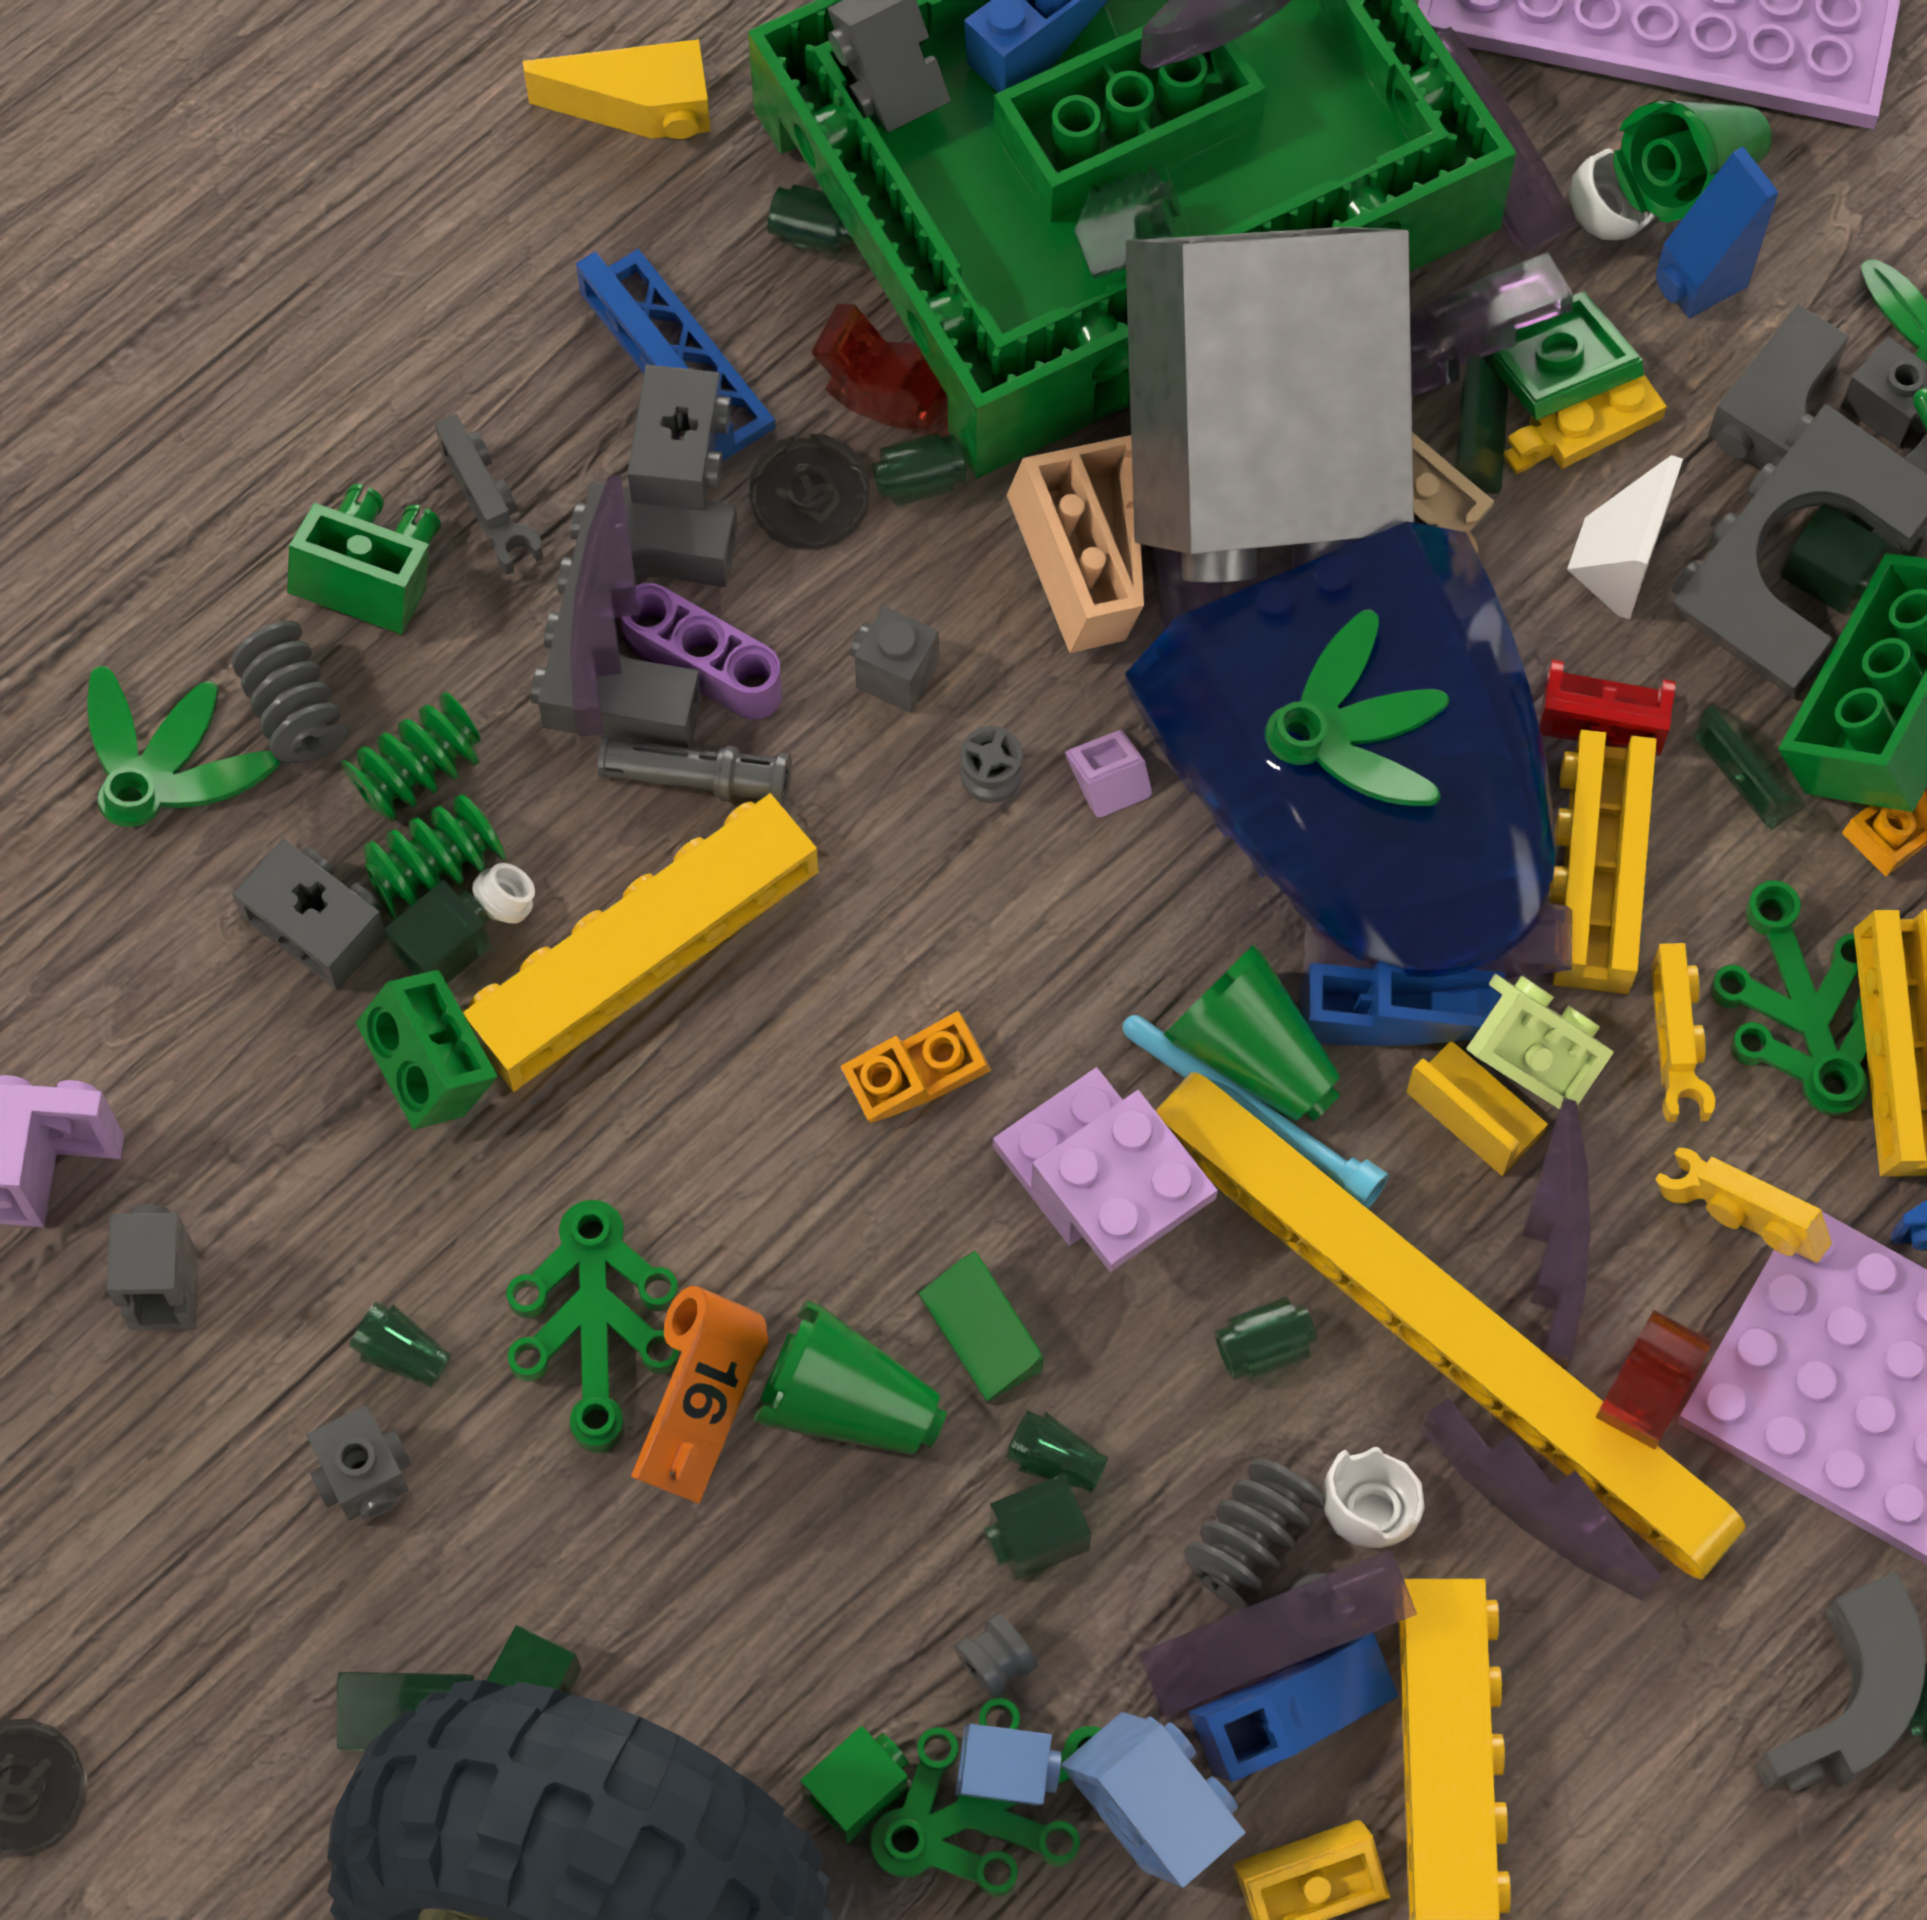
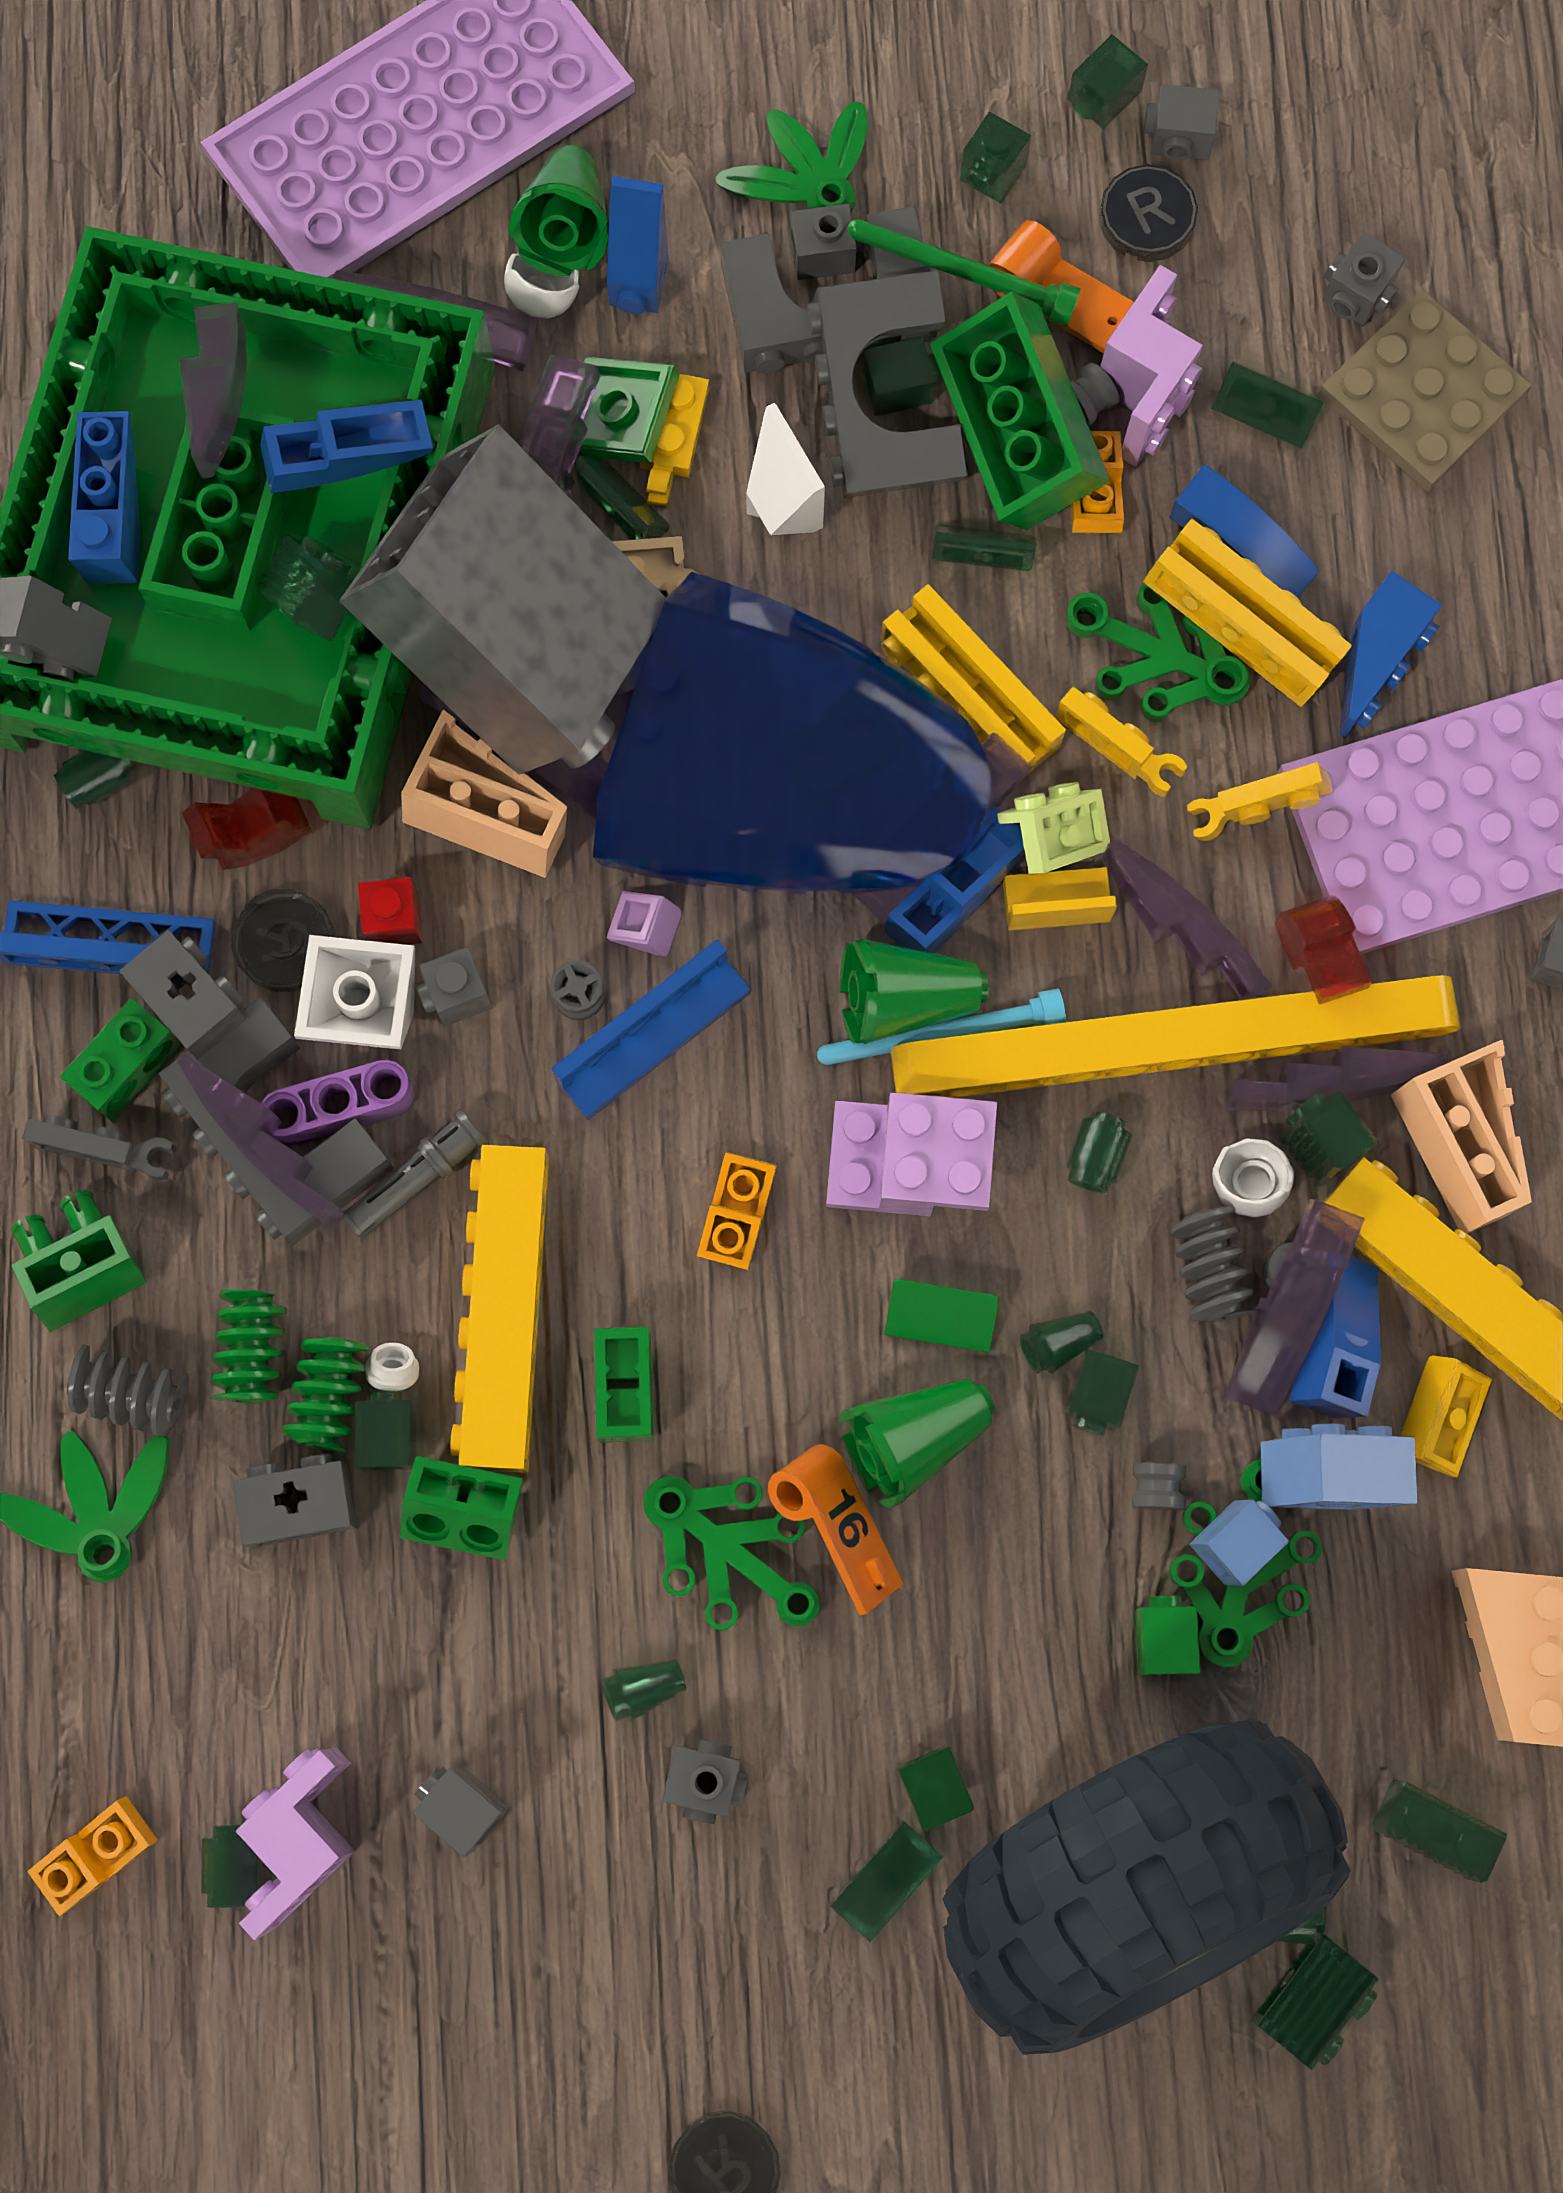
camera: 50 degrees left, 10 degrees up
(571, 445) = (121, 1060): none -> green brick
(661, 1095) = (623, 1384): none -> green brick
(813, 580) = (356, 992): none -> white slope
(913, 551) = (390, 911): none -> red brick
(919, 468) = (334, 859): clear green brick -> none
(1013, 853) = (650, 1030): none -> blue fence
(1278, 140) = (344, 444): none -> blue slope
(1333, 731) = (769, 770): green plant -> none
(1472, 1526) = (1327, 1136): none -> clear green brick
(1601, 1662) = (1468, 1136): none -> light nougat wedge
(1606, 706) = (874, 592): red hinge -> none

